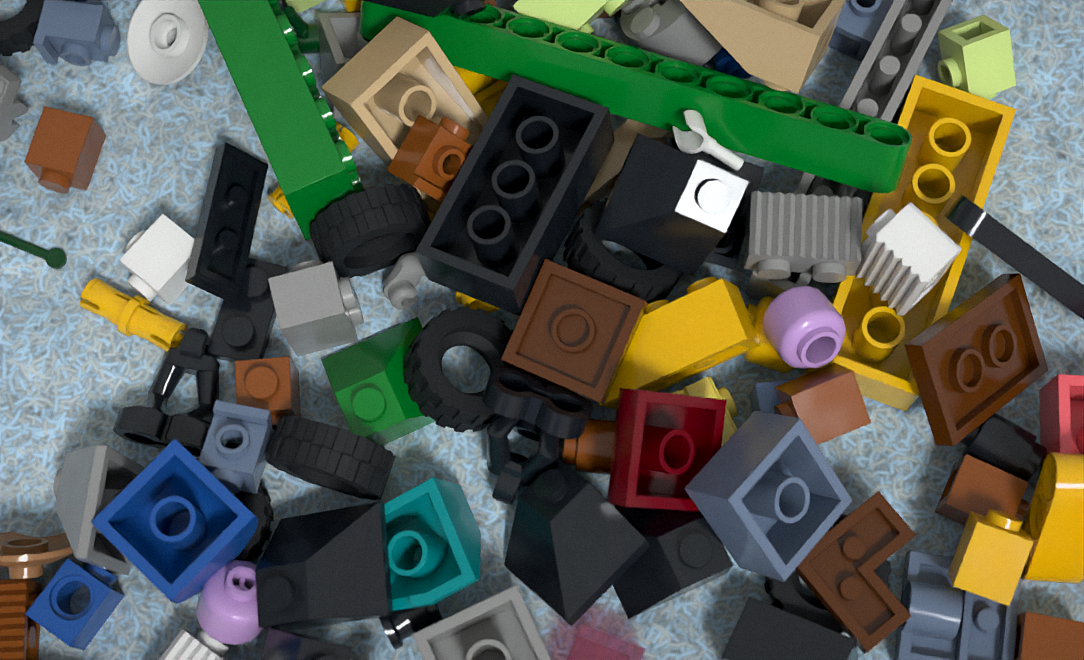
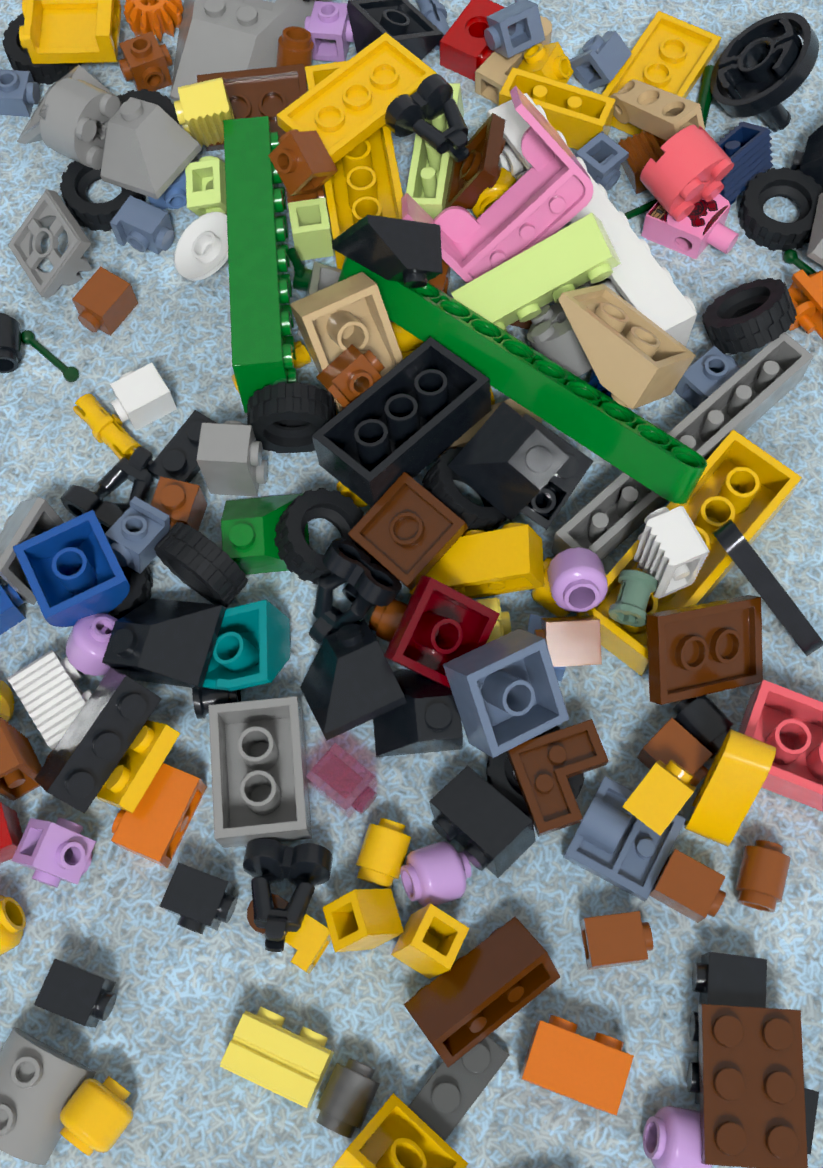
camera: 20 degrees right, 5 degrees down
(227, 223) = (193, 384): black tile -> none
(402, 281) = (303, 465): light grey arm -> none
(699, 140) = (548, 422): white hand -> none
(803, 235) = (600, 514): light grey brick -> none
(877, 327) = (633, 598): none -> sand green bush
(977, 57) = (788, 435): yellowish green brick -> none

